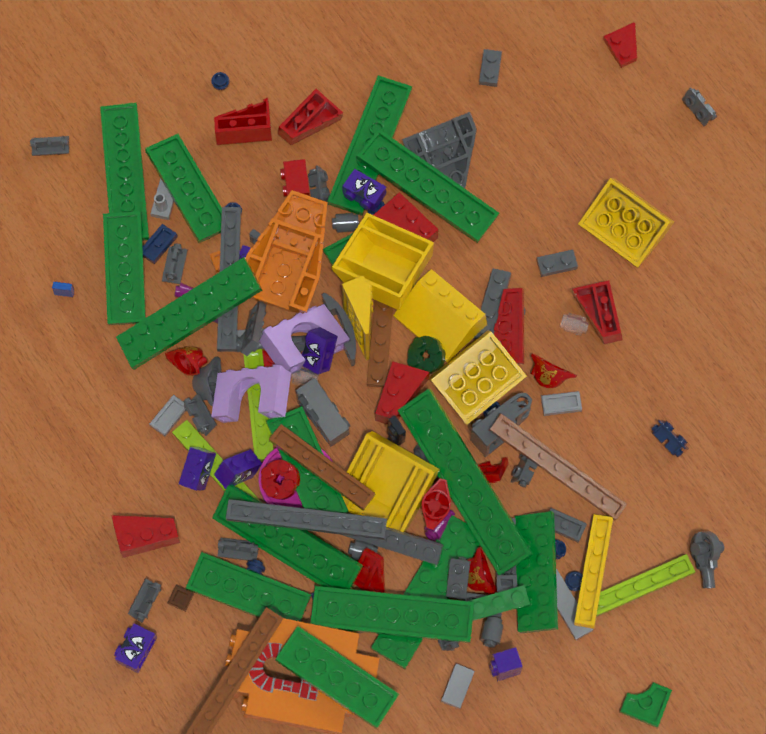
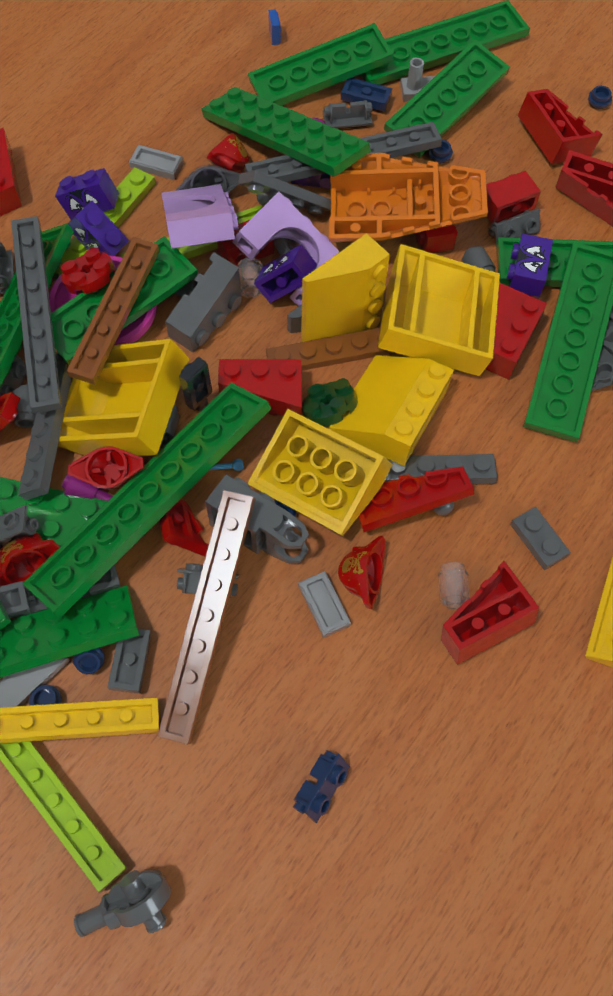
camera: 70 degrees right, 5 degrees down
(202, 417) = (170, 179): dark grey hinge -> none

